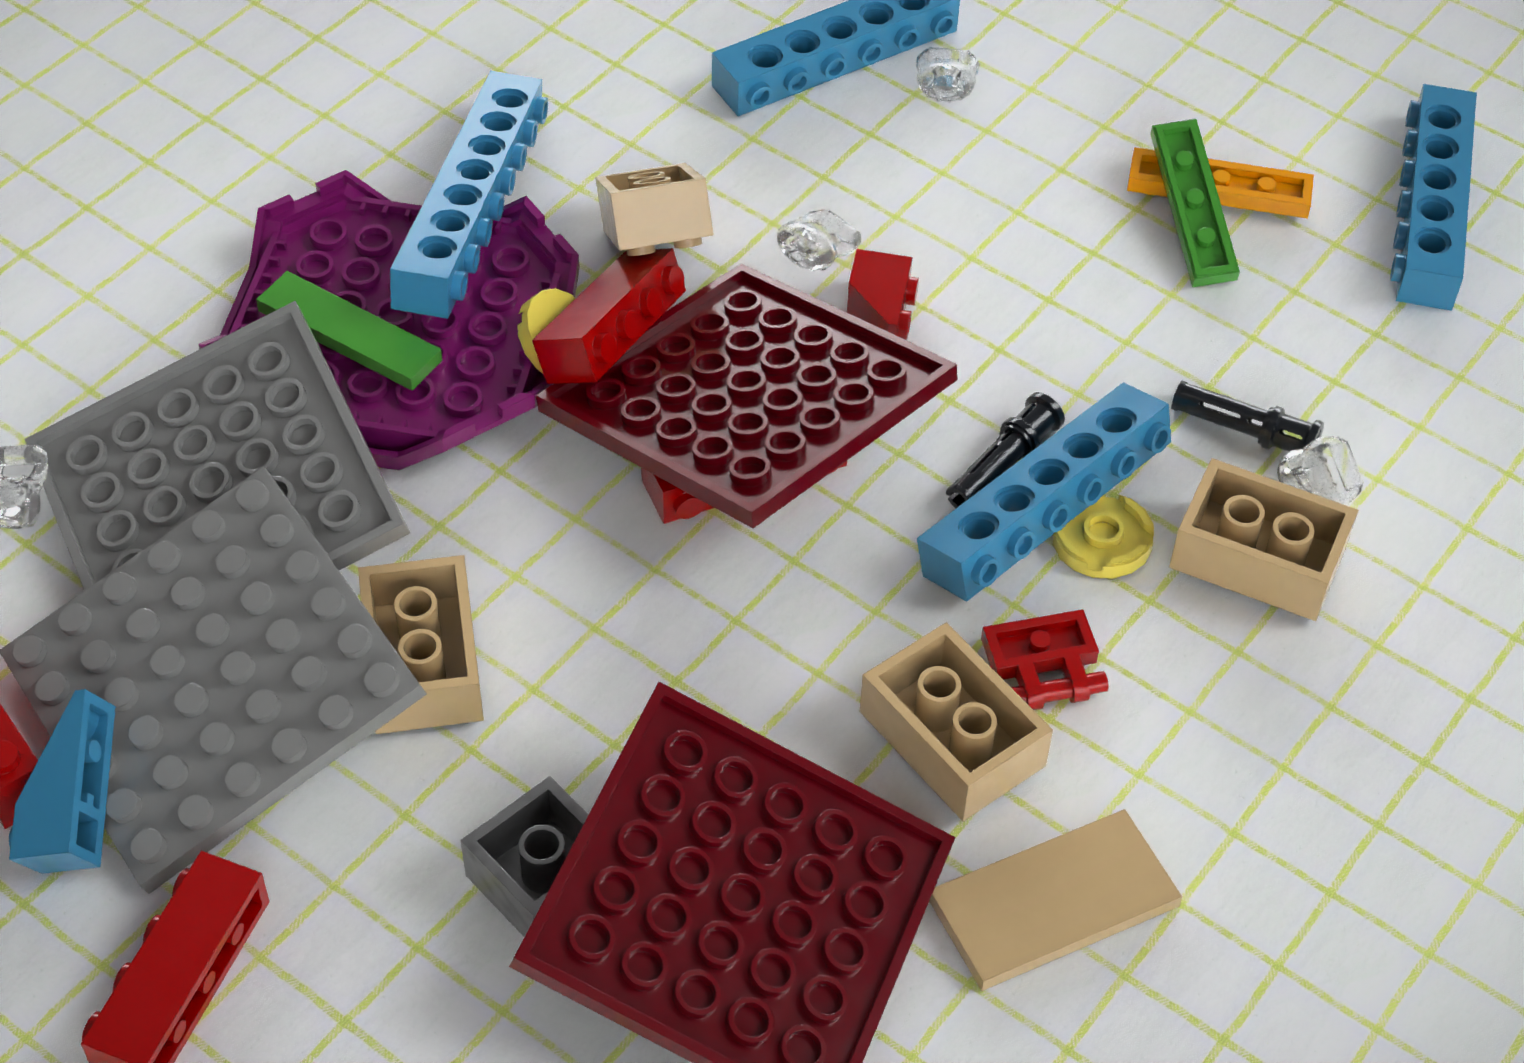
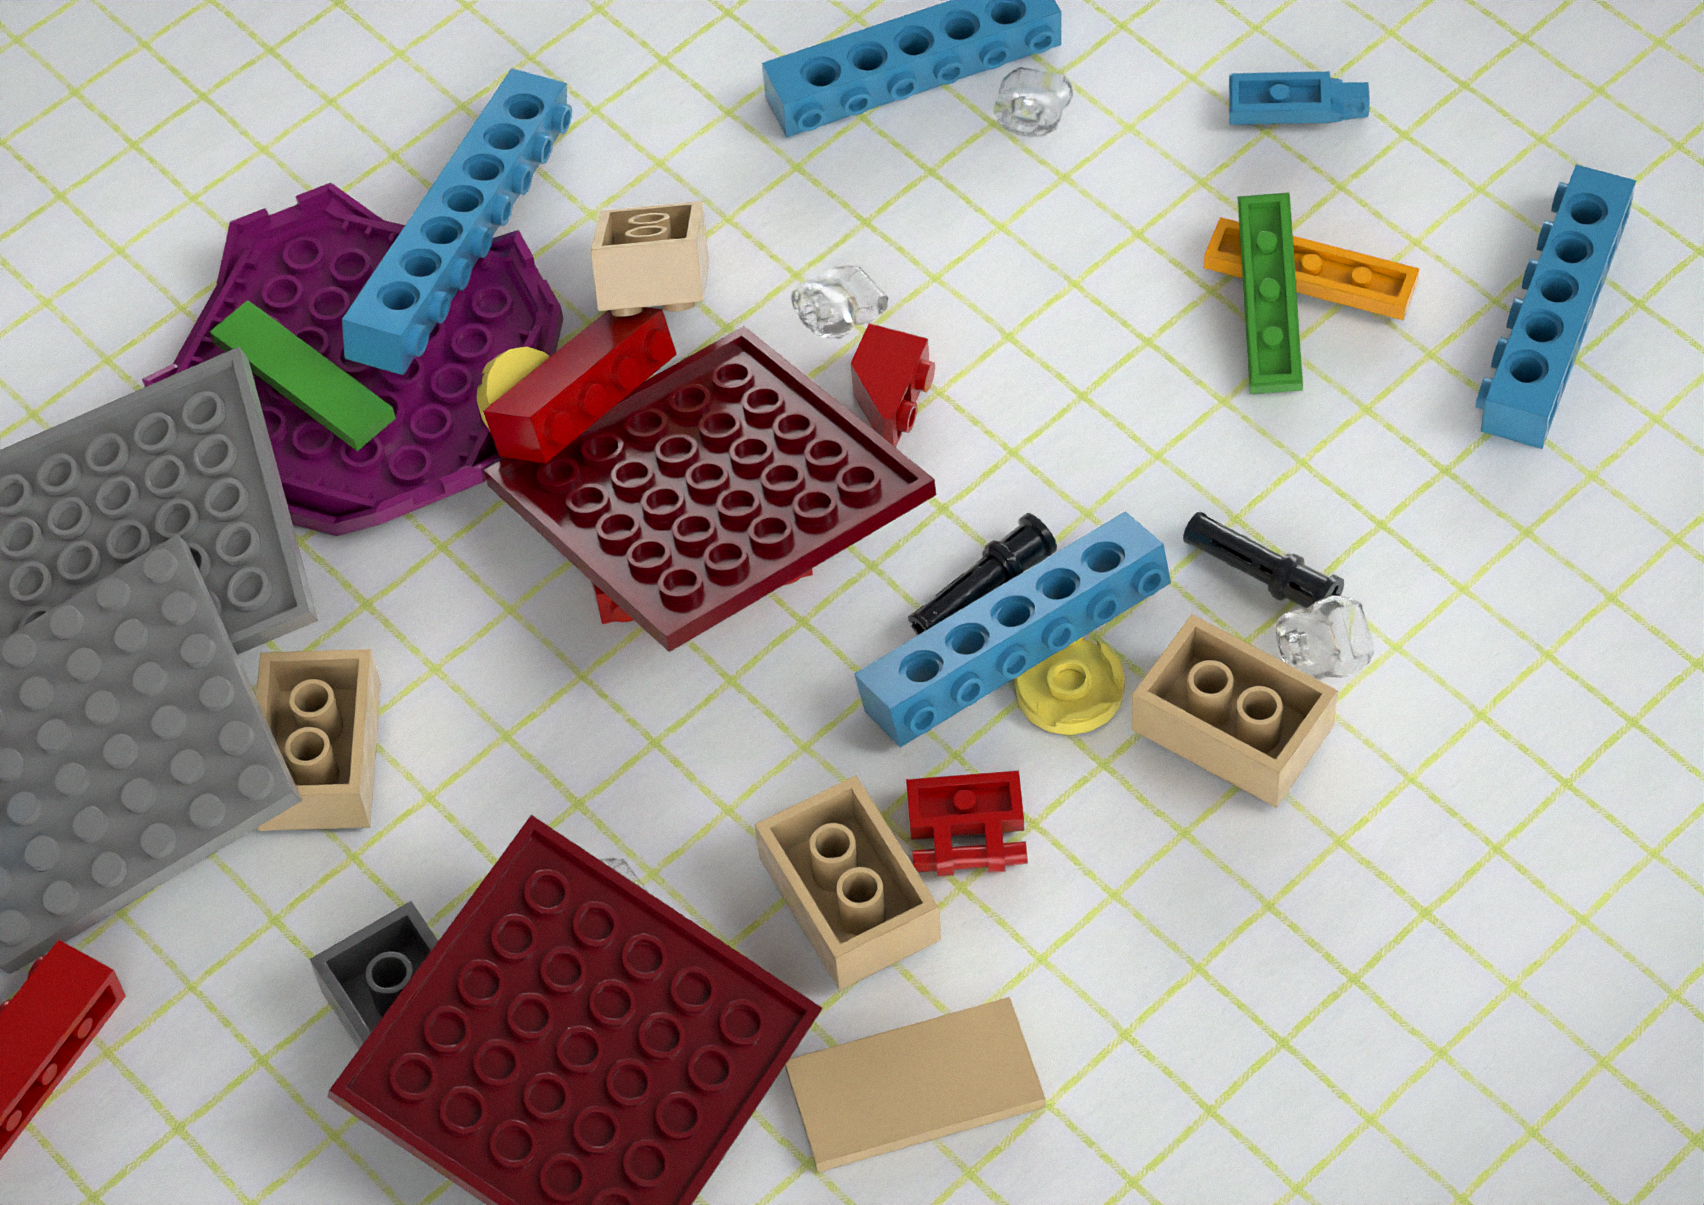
camera: 15 degrees right, 5 degrees up
(1168, 55) = (1295, 98): none -> dark azure hinge

